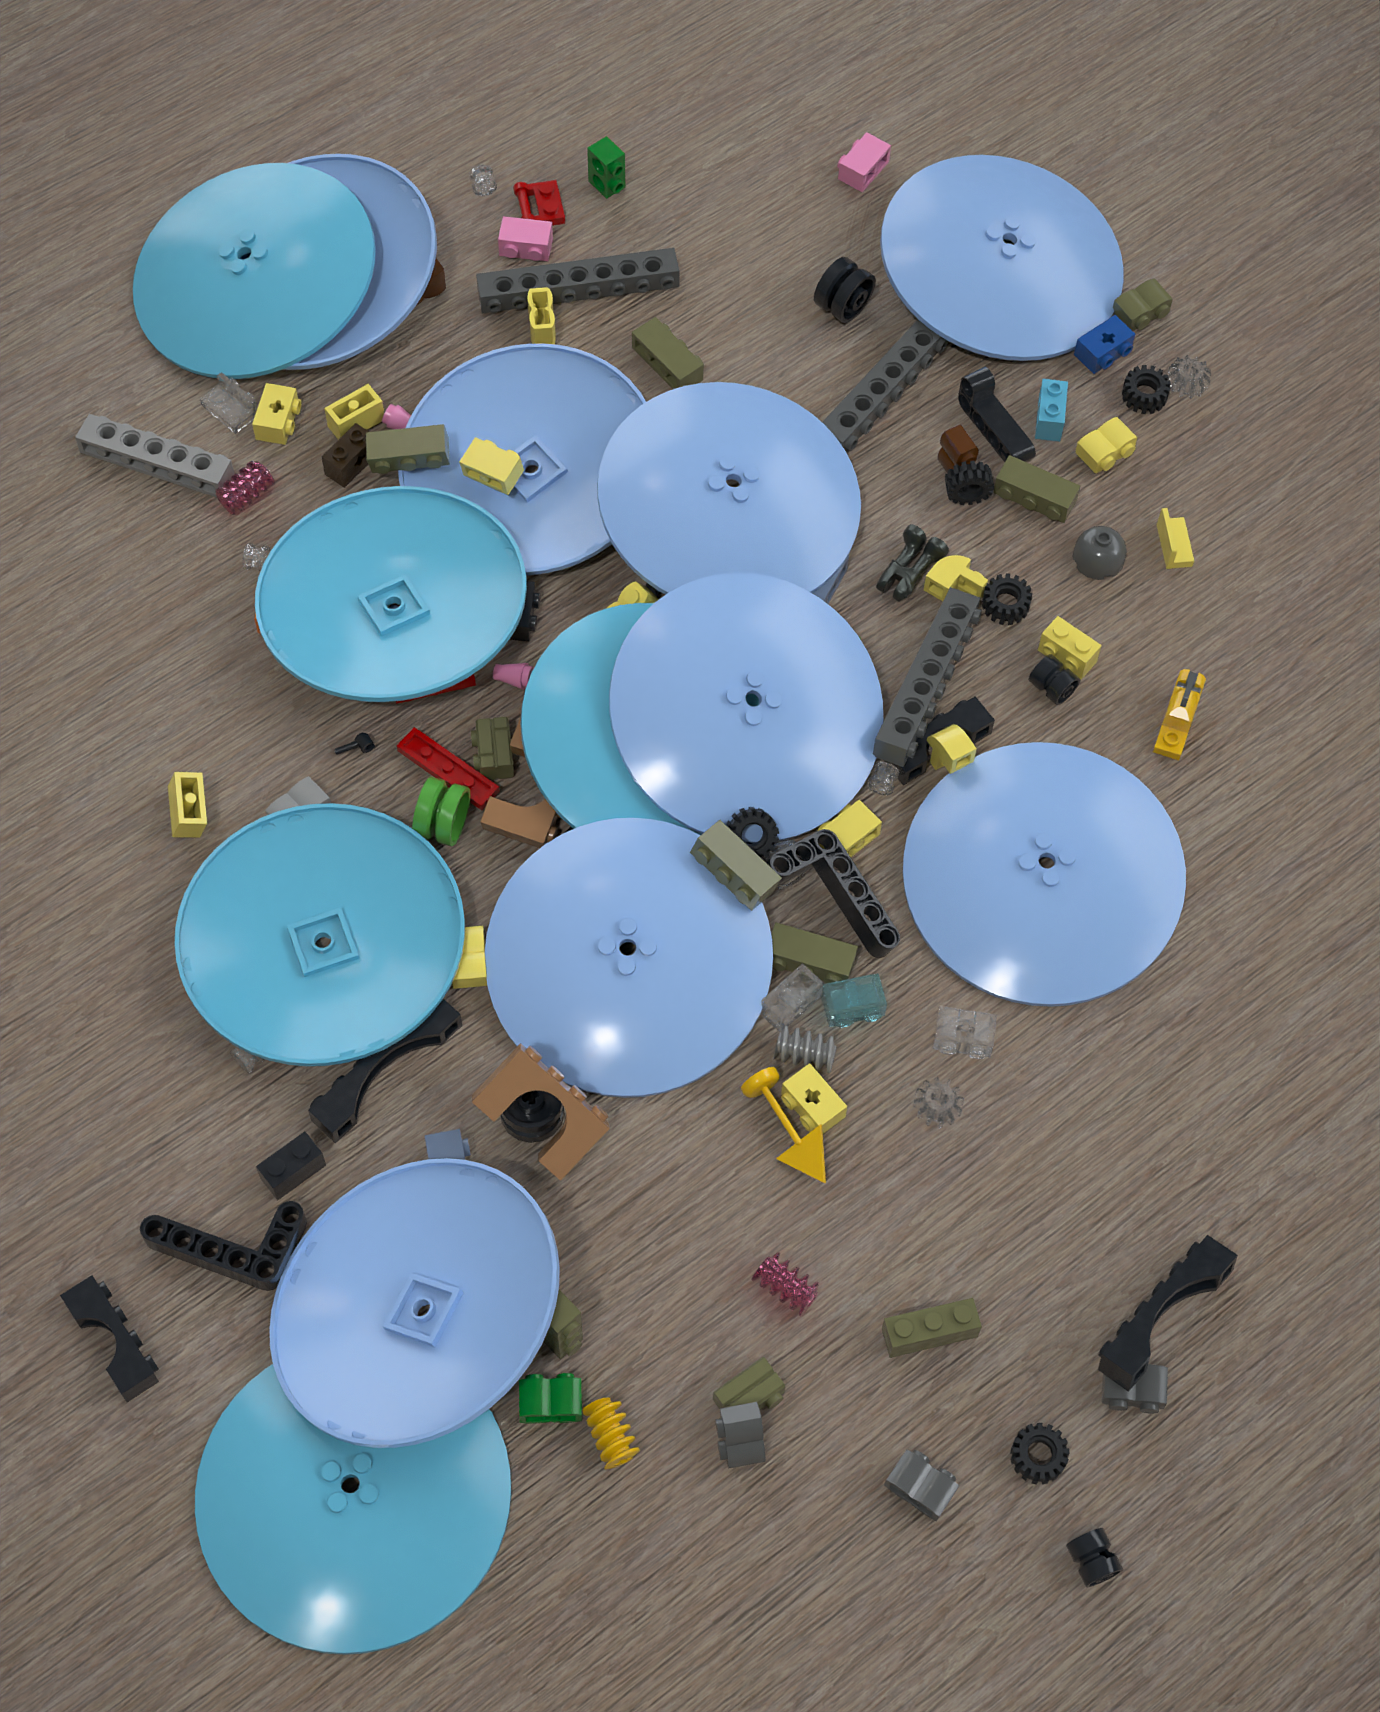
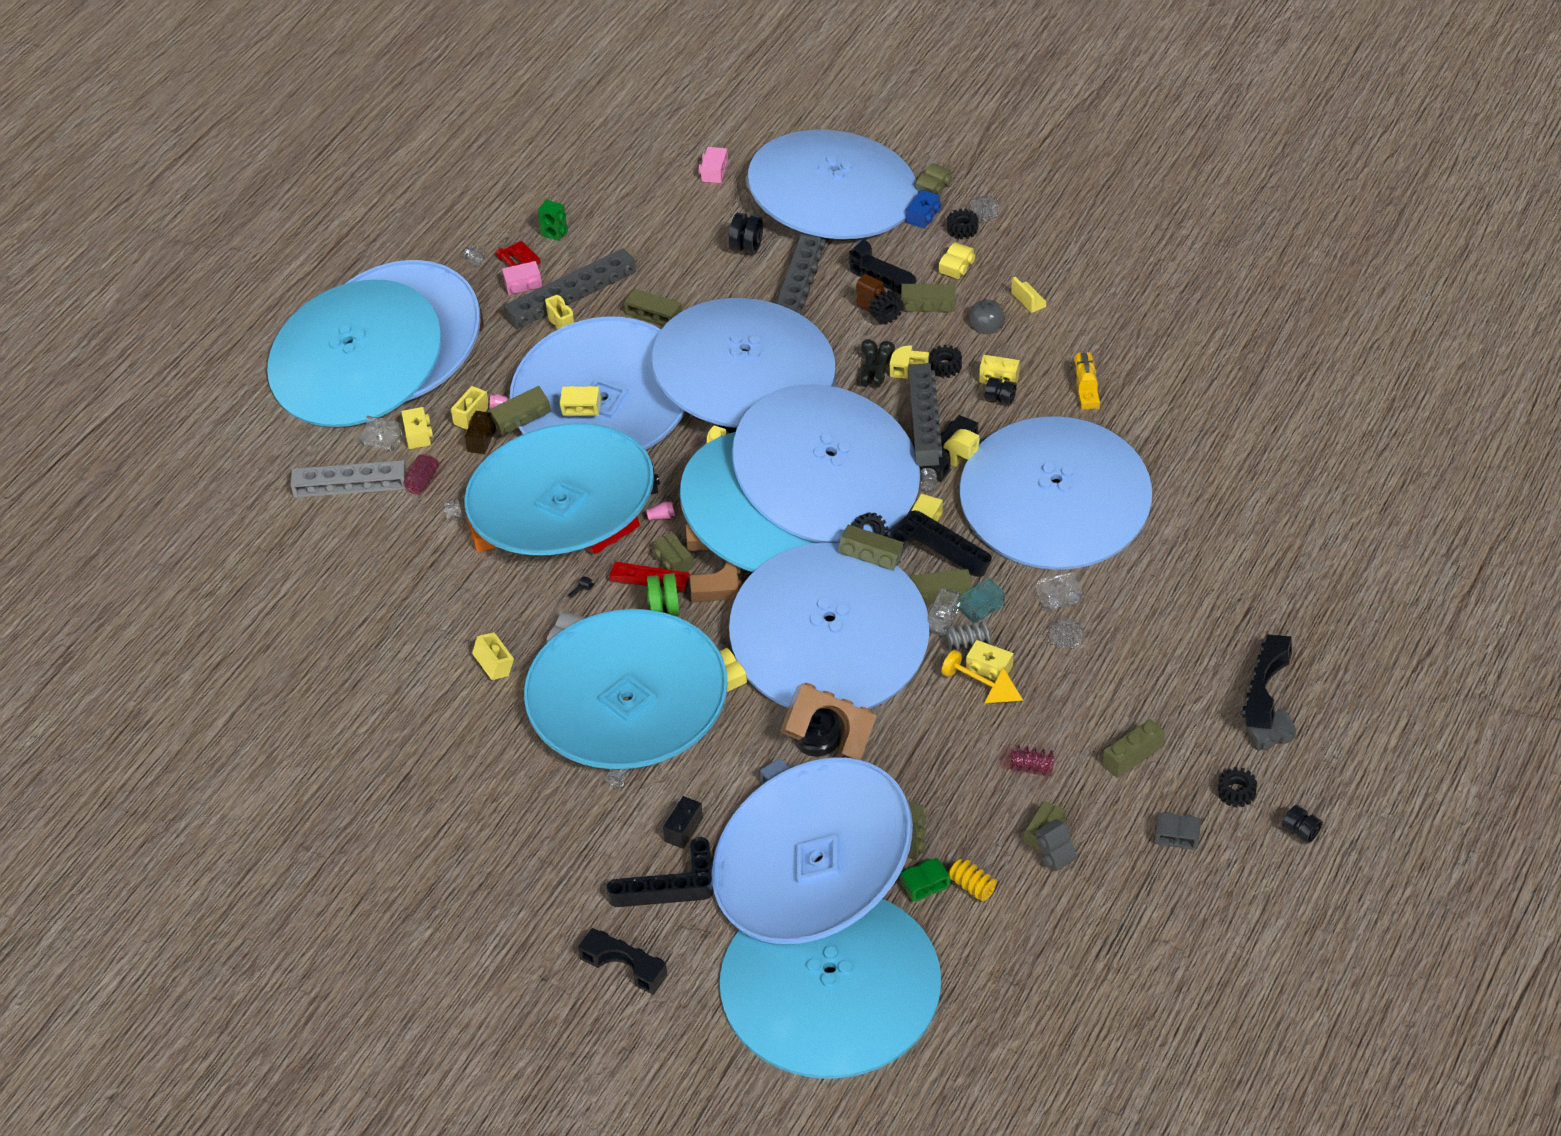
camera: 20 degrees left, 15 degrees down
(339, 1108) = (694, 778): black arch -> none
(1051, 410) = (912, 253): medium azure brick -> none

